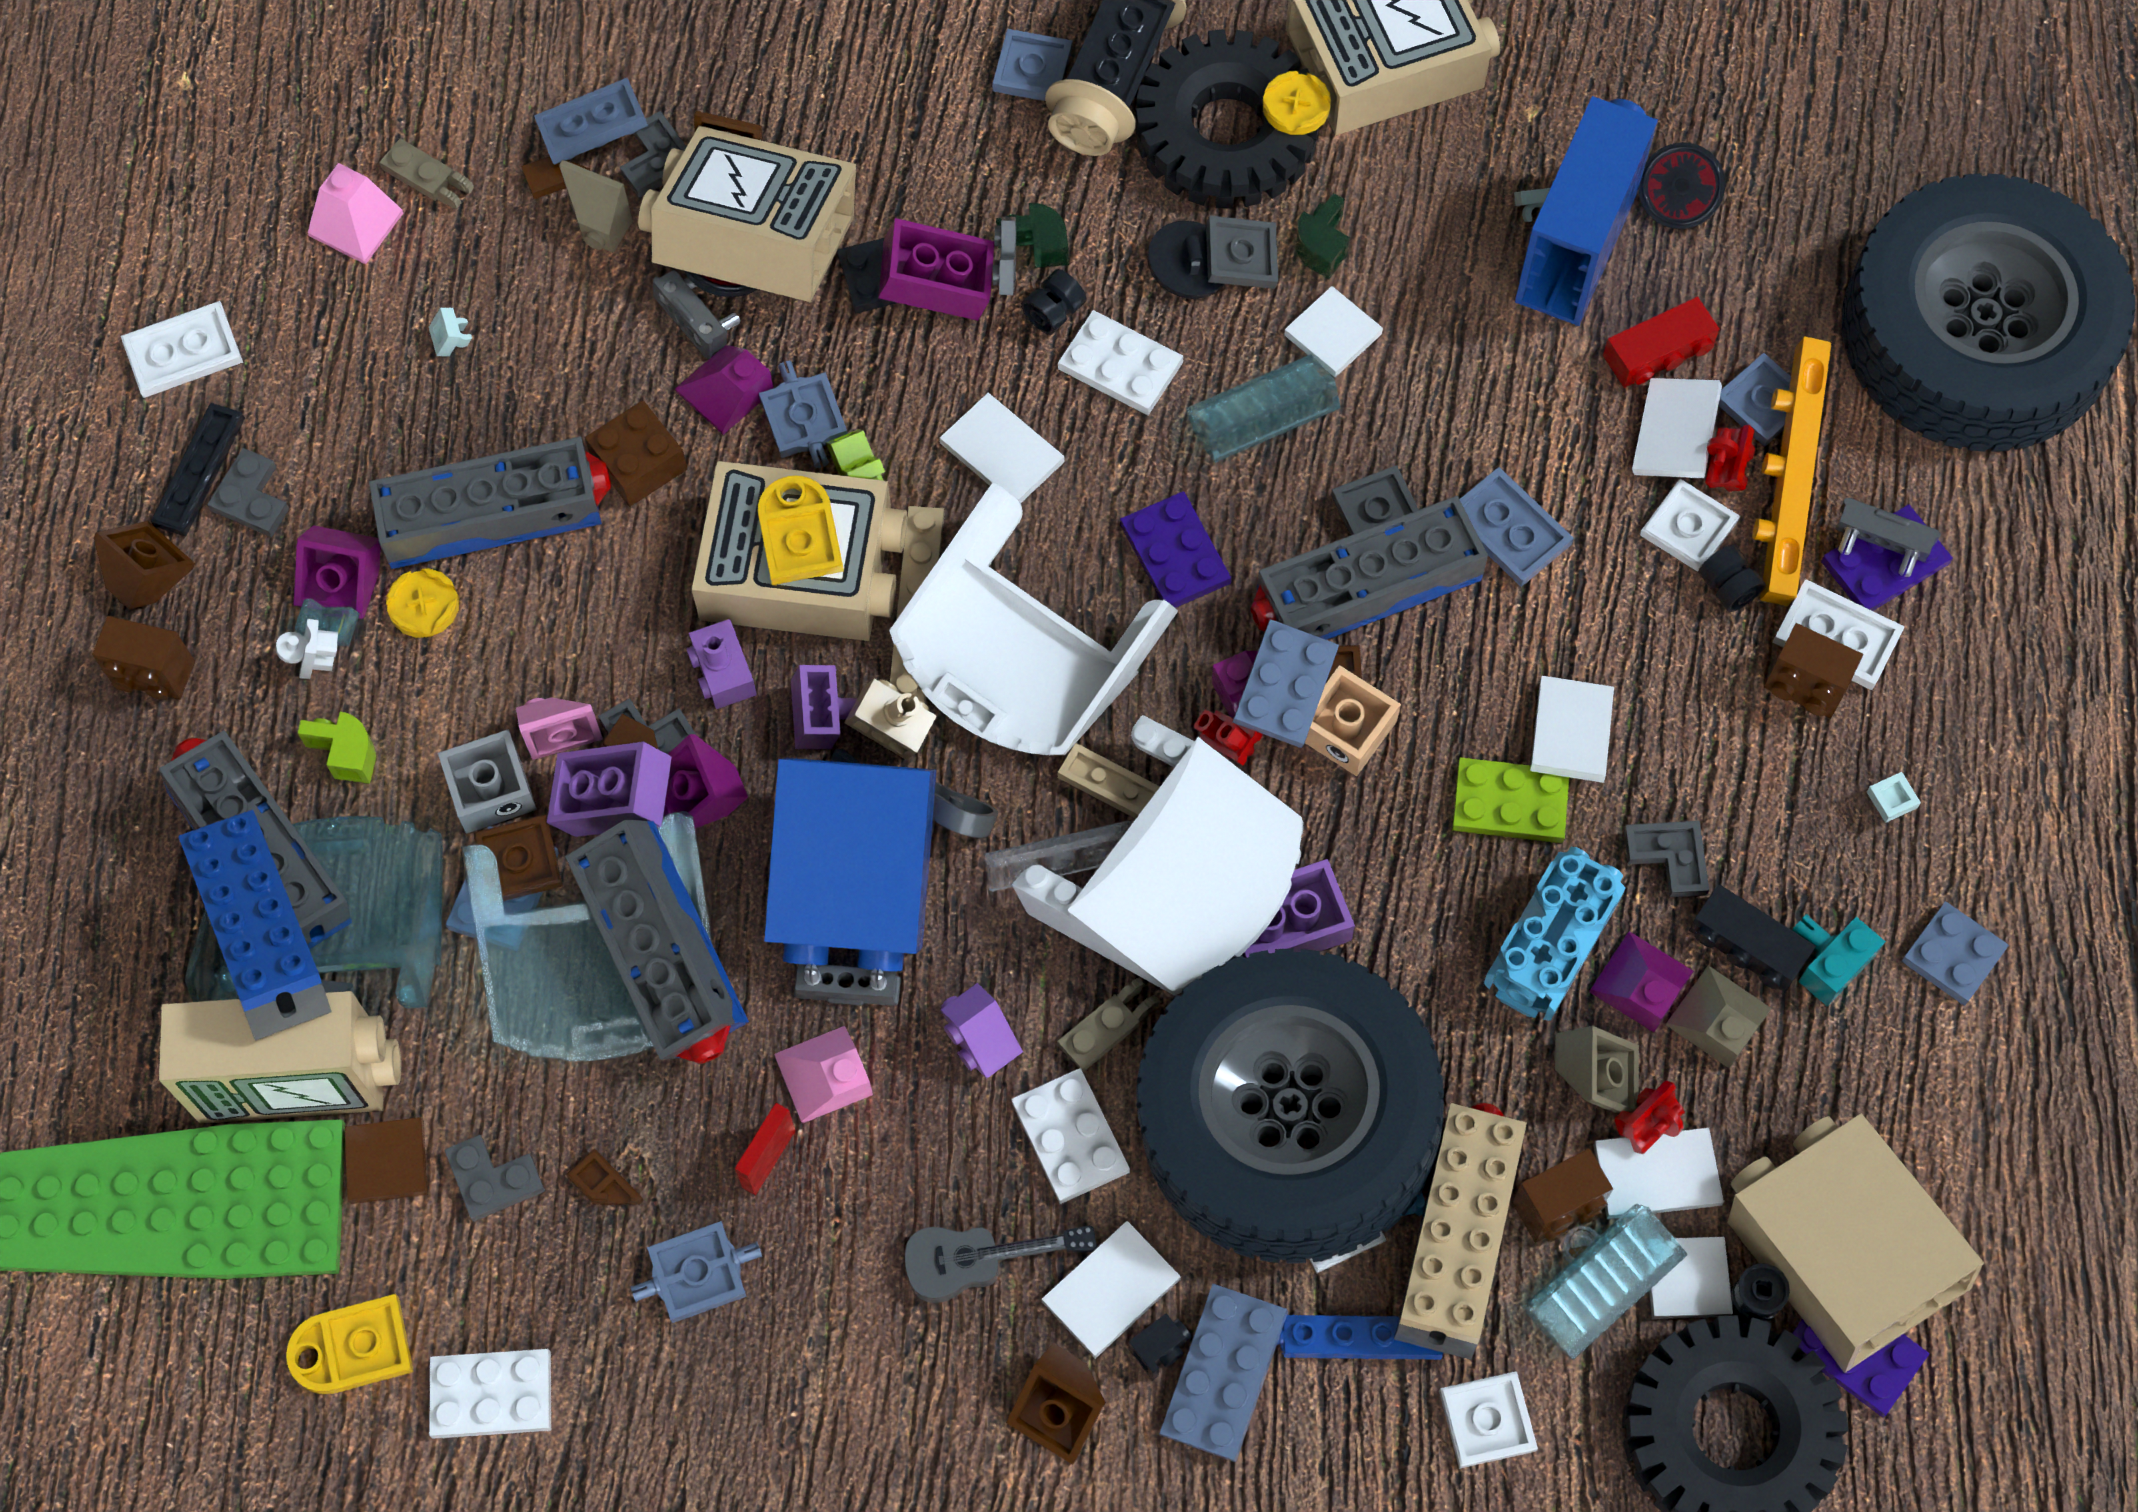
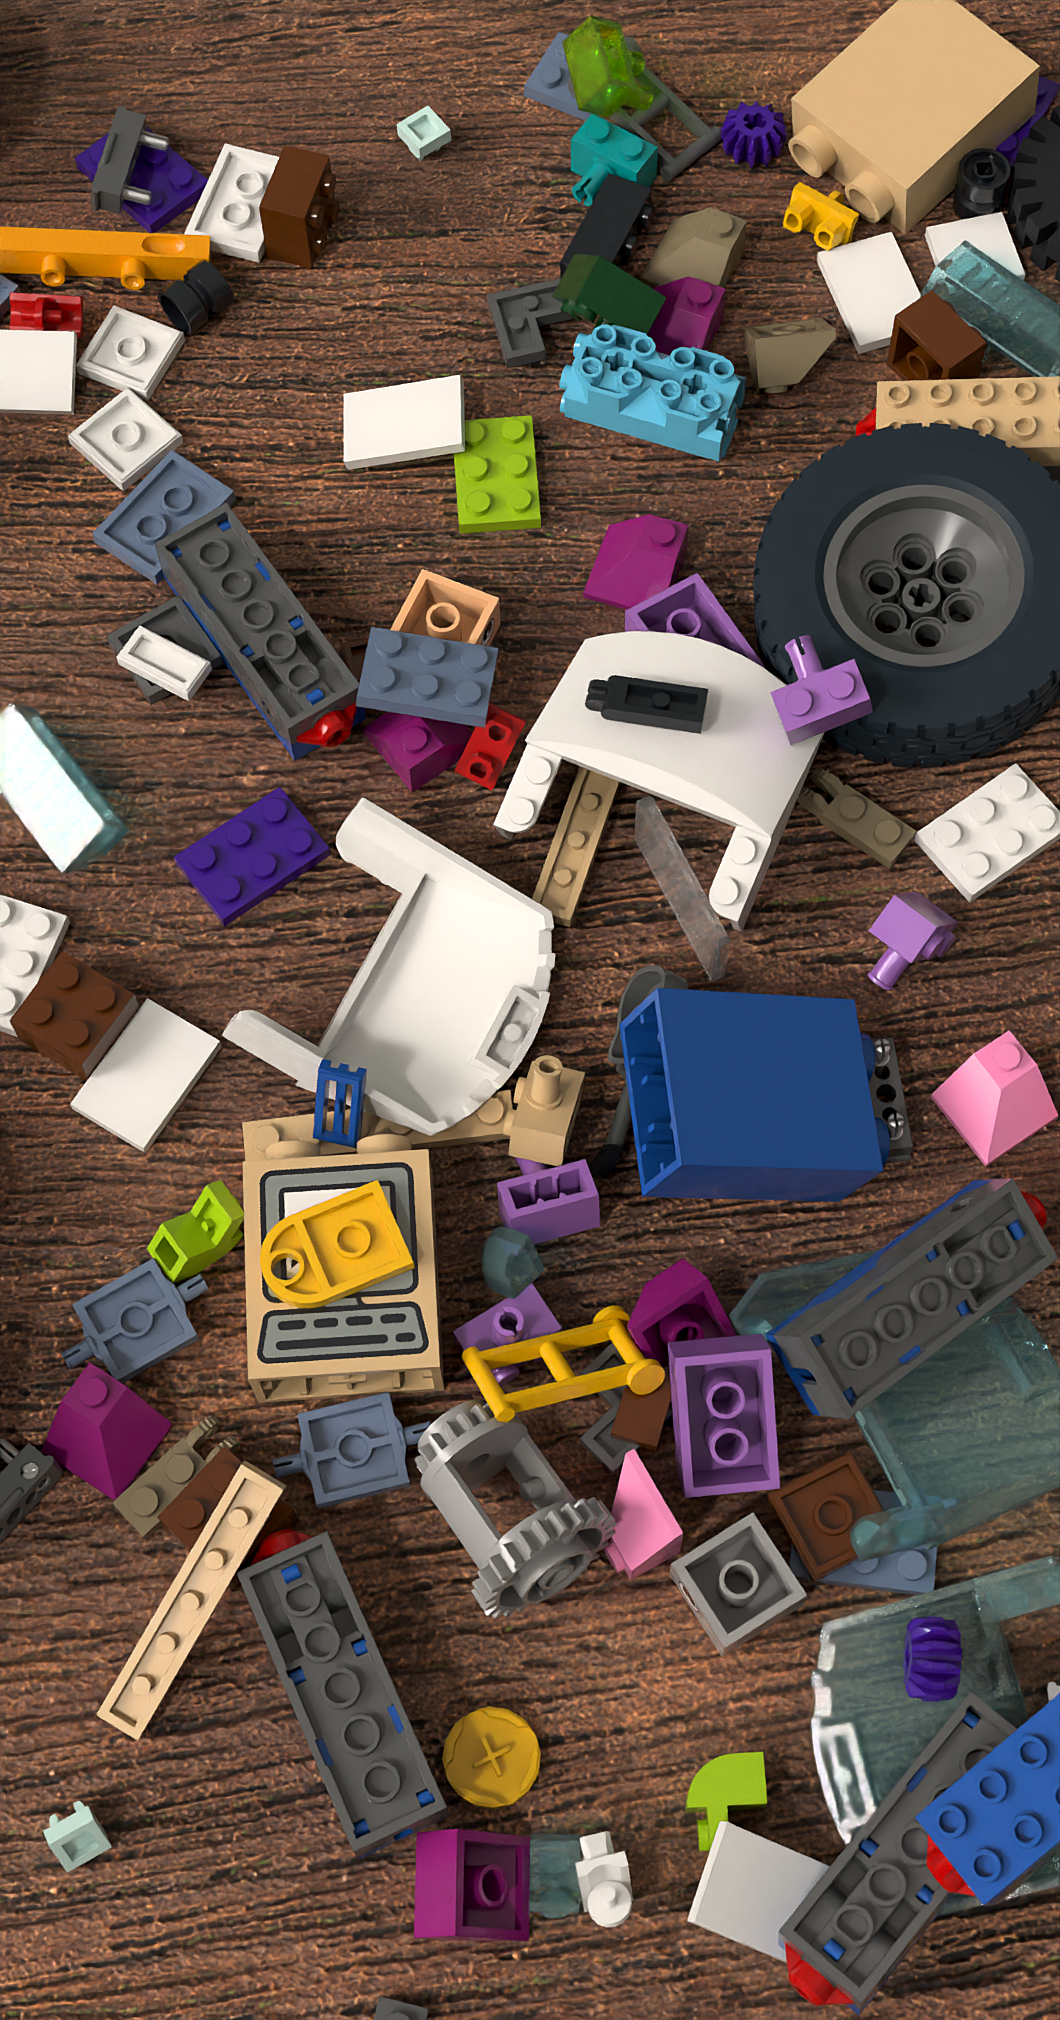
camera: 100 degrees left, 0 degrees up
(274, 742) = (752, 1888): none -> white tile
(387, 895) = (932, 1658): none -> dark purple gear
(538, 641) = (538, 1553): none -> light grey piece
(576, 411) = (191, 1600): none -> tan plate
(655, 733) = (608, 1324): none -> yellow piece
(665, 544) = (352, 1450): none -> sand blue plate
(681, 424) = (168, 1477): none -> dark tan hinge
(772, 669) = (509, 1261): none -> clear light blue brick
(927, 557) = (343, 1078): none -> blue tile
(1057, 400) = (74, 1015): none -> reddish brown brick
(1181, 968) = (820, 696): none -> medium lavender brick
(1207, 837) = (648, 703): none -> black hinge
(1358, 502) = (164, 663): none -> white tile
(1390, 897) = (637, 561): none -> magenta slope
(1599, 510) = (125, 439): none -> white tile
(1656, 1115) = (810, 289): red hips -> none
(1659, 908) = (606, 295): none -> dark green brick
(1757, 1125) = (821, 216): none -> yellow hips
(1851, 1083) = (753, 133): none -> dark purple gear
(1919, 946) = (604, 68): none -> clear neon green brick
(1922, 948) = (664, 99): none -> dark grey piece

